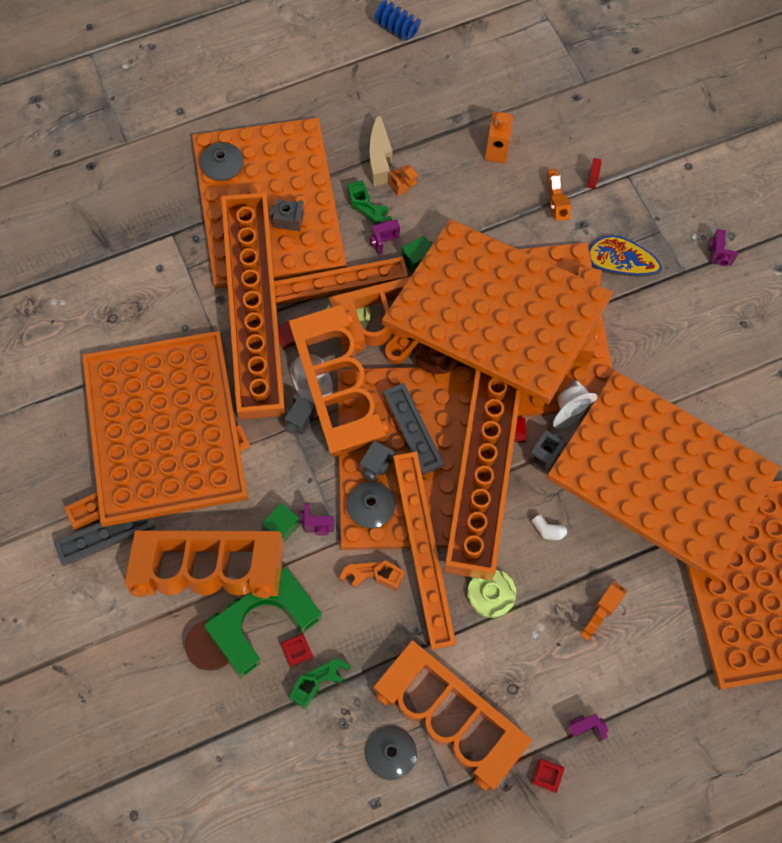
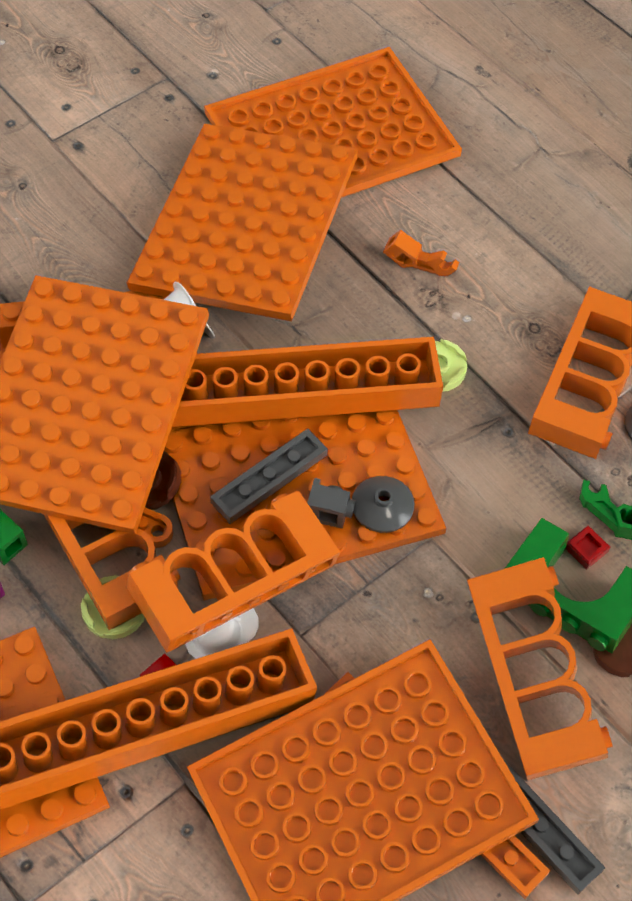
camera: 105 degrees left, 10 degrees down
(282, 520) = (444, 603): green brick -> none
(299, 415) = (284, 616): dark grey brick -> none
(318, 524) = (429, 560): magenta bracket -> none
(339, 280) = (62, 626): orange plate -> none
(371, 570) = (465, 496): orange piece -> none
(424, 551) = (416, 431): orange plate -> none
(543, 458) = (247, 334): dark grey brick -> none
(548, 531) = (345, 325): white arm -> none
(548, 775) = (610, 279): red tile -> none
(580, 725) = (548, 252): magenta bracket -> none

